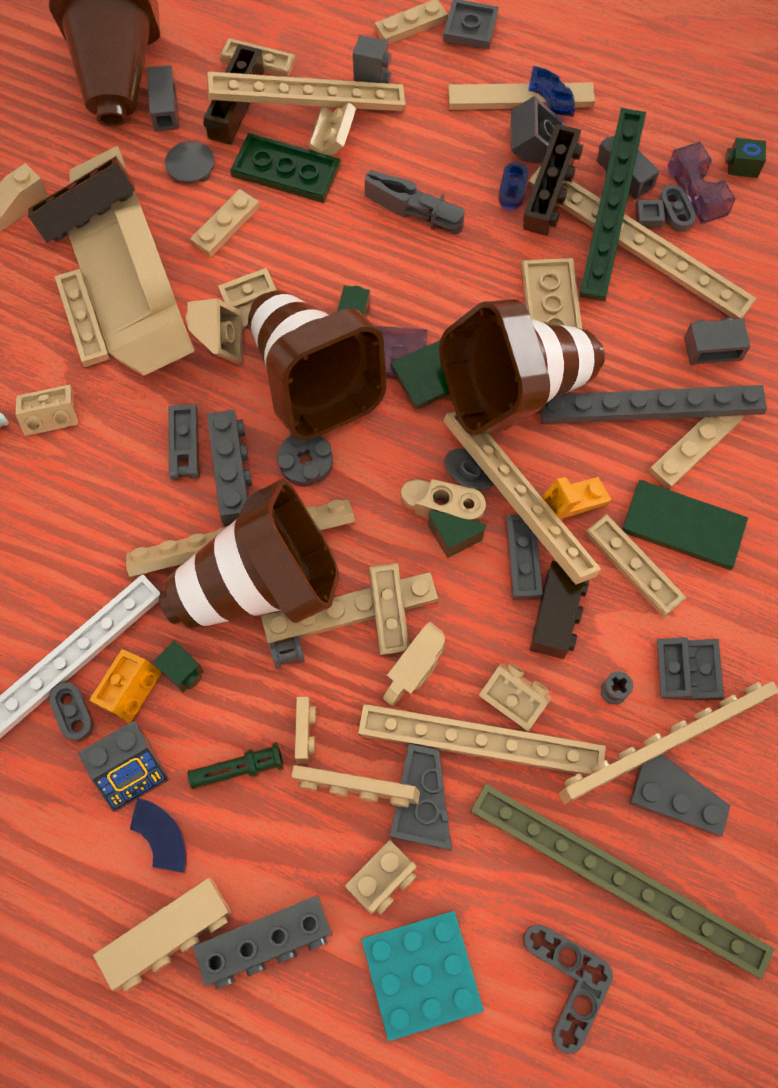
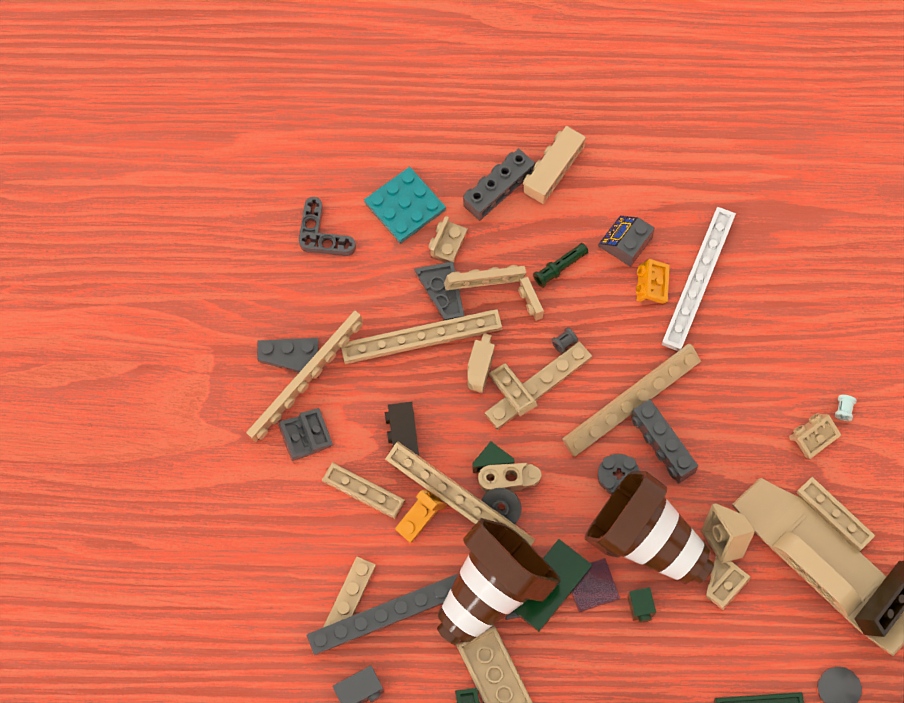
camera: 160 degrees right, 0 degrees up
(72, 713) = (676, 255): dark grey plate -> none
(162, 834) = (584, 215): clear blue tile -> none
(179, 667) = (625, 304): dark green brick -> none
(183, 441) = (707, 451): dark grey plate -> none
(224, 223) = (779, 643): tan plate -> none
(256, 566) = (596, 372): reddish brown cone -> none
(516, 695) = (409, 372): tan bracket -> none
(523, 560) = (437, 456): dark grey plate -> none
(615, 679) = (349, 393): dark grey bush -> none
(624, 882) = (312, 293): olive plate -> none
(685, 525) = (338, 533): dark green tile -> none

